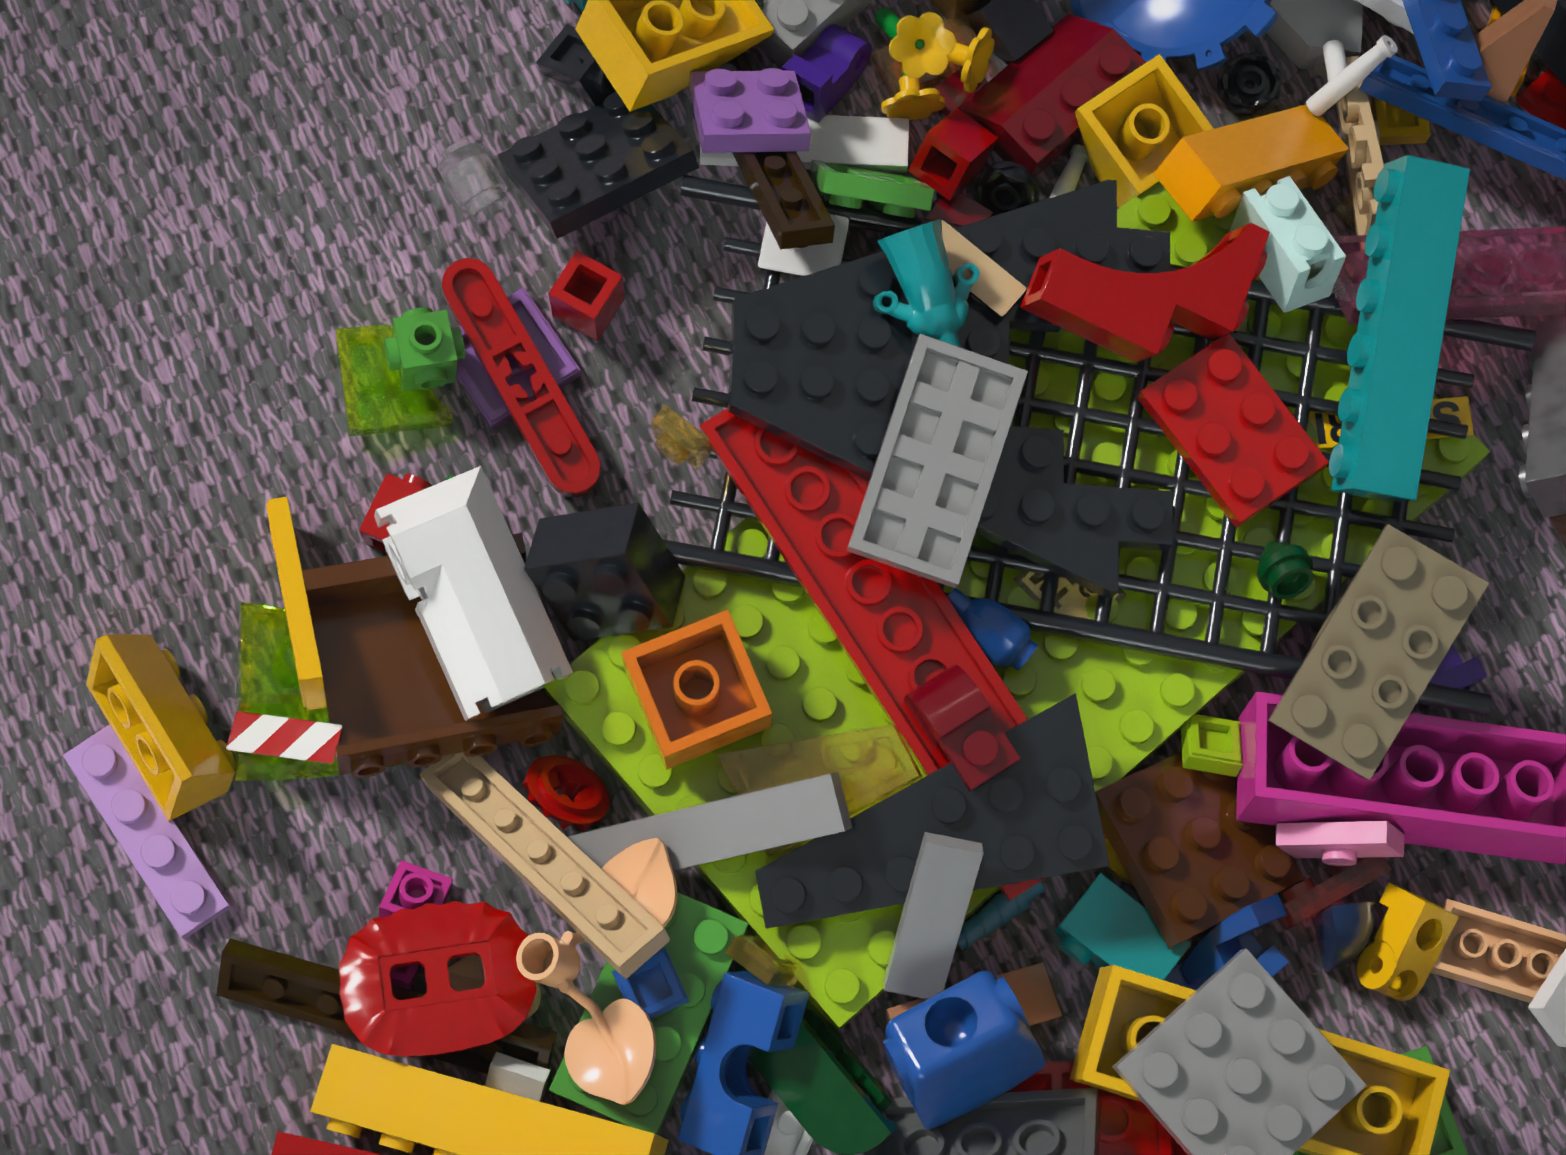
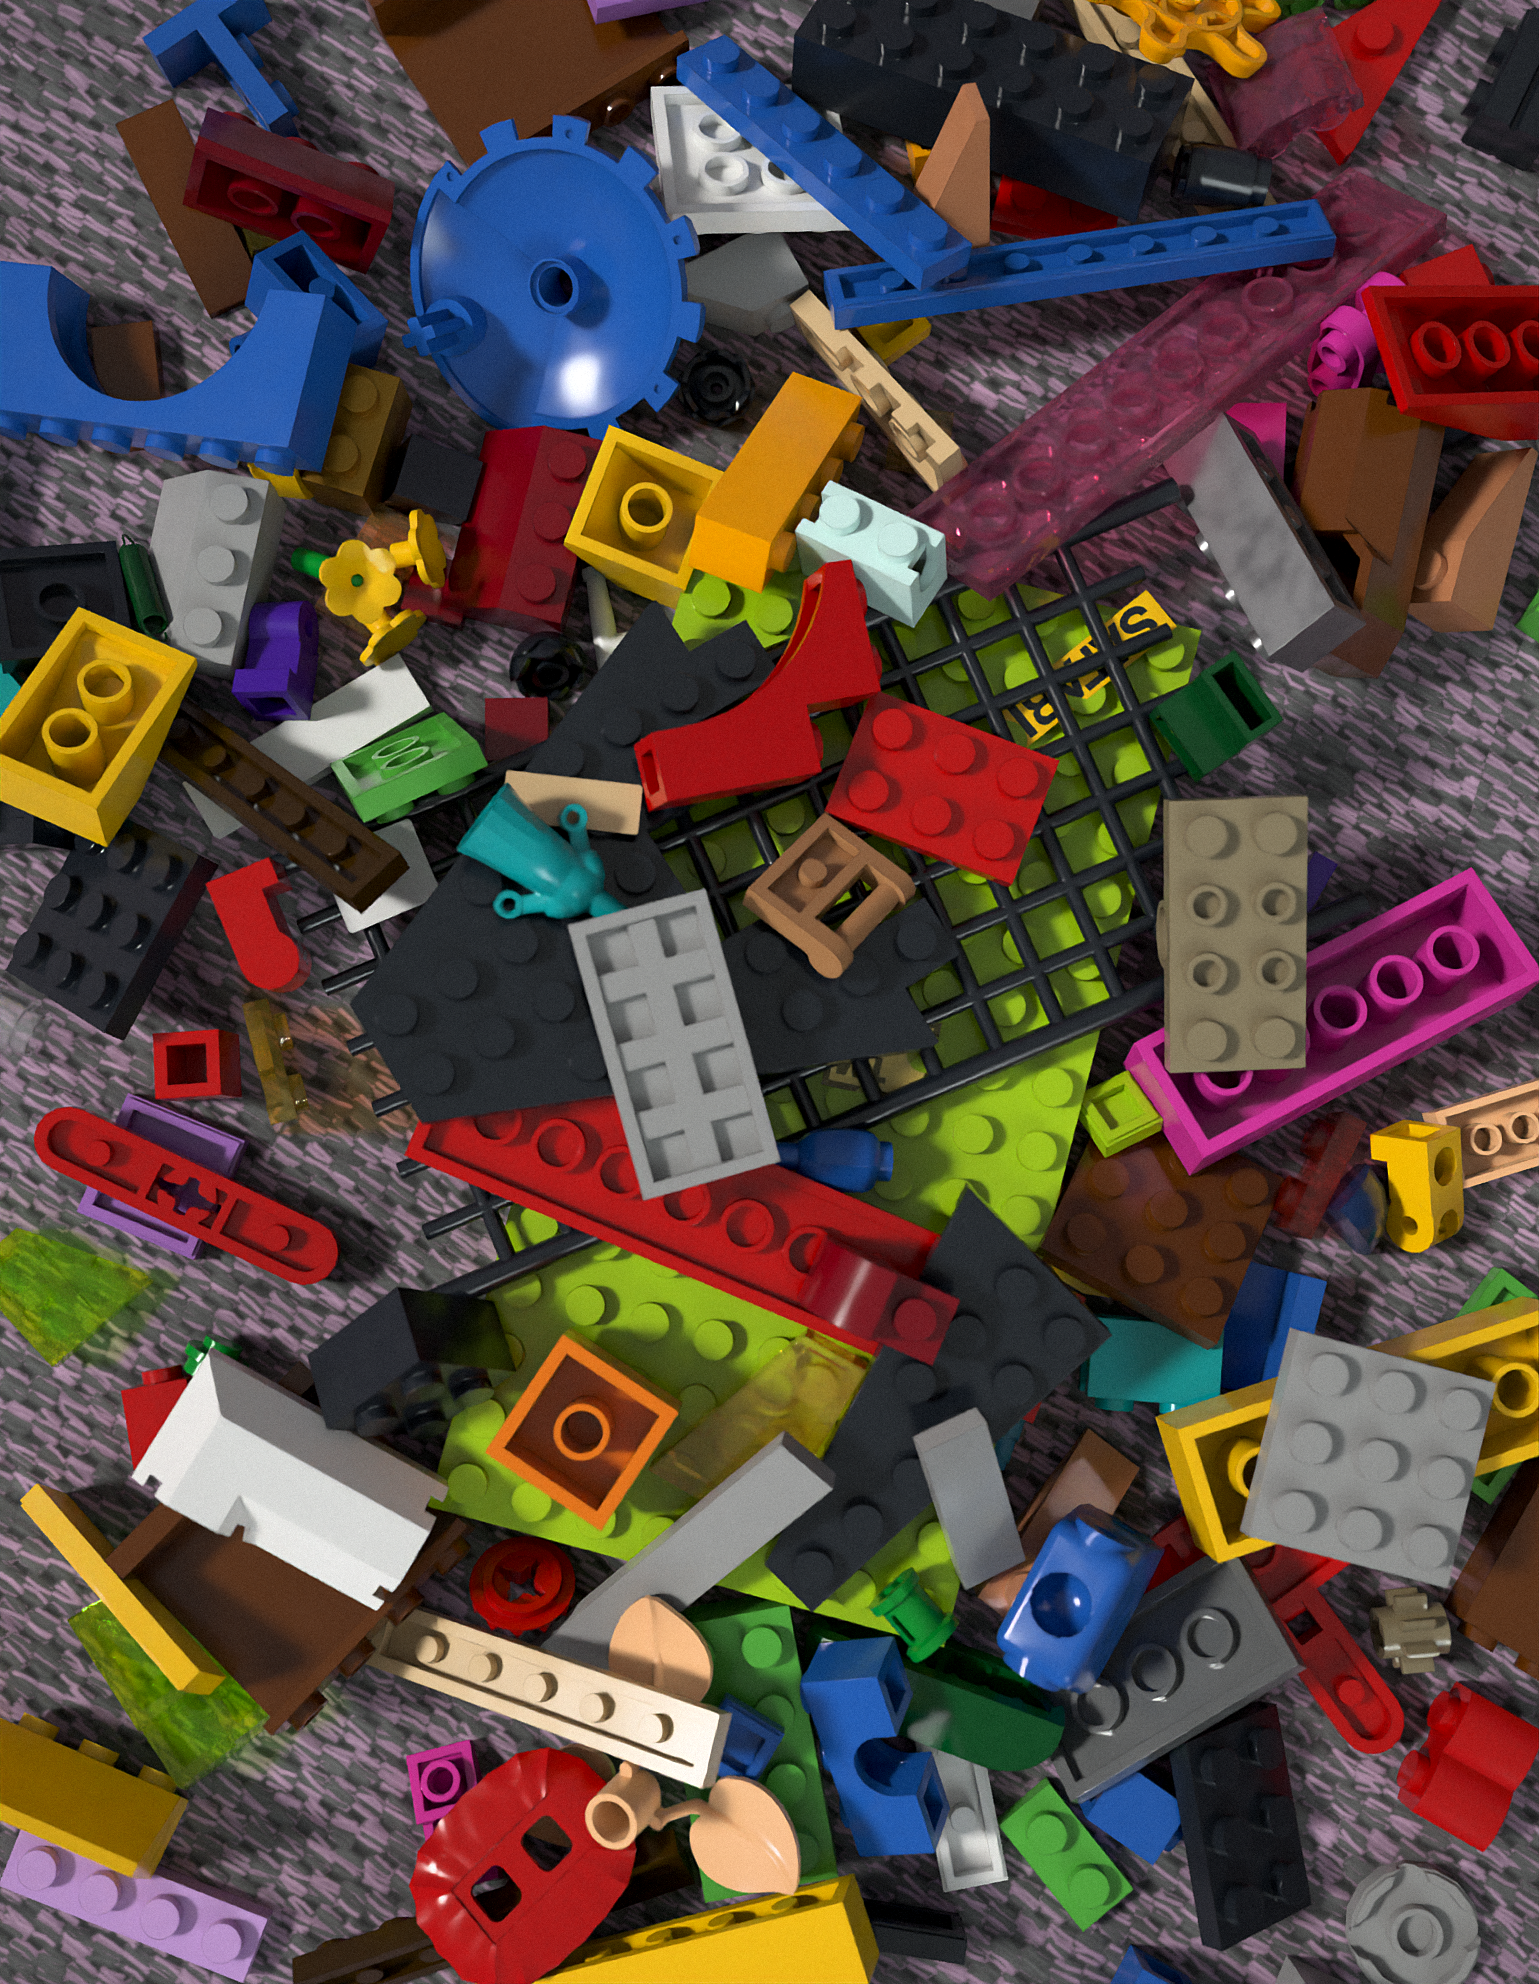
camera: 30 degrees left, 10 degrees up
(284, 737) = (205, 1732): sticker -> none
(424, 349) = (92, 1241): bright green brick -> none
(517, 1077) = (666, 1898): white tile -> none
(646, 313) = (269, 1037): none -> clear yellow wing
(679, 439) = (392, 1180): clear yellow plate -> none
(700, 218) = (258, 926): none -> red leg
(749, 111) = (229, 770): medium lavender plate -> none
(762, 962) = (829, 1639): clear yellow tile -> none
(836, 977) = (914, 1615): none -> green bush
(953, 154) = (468, 665): red brick -> none
(1105, 426) = (813, 878): none -> medium nougat plate
(1223, 940) = (1256, 1298): blue slope -> none
(1285, 569) = (1085, 903): dark green plate -> none
(1340, 841) = (1305, 1135): bright pink plate -> none
(1343, 77) = (813, 327): white piece -> none
(1399, 329) = (1048, 577): teal brick -> none
(1461, 502) = (1216, 716): none -> dark green piece

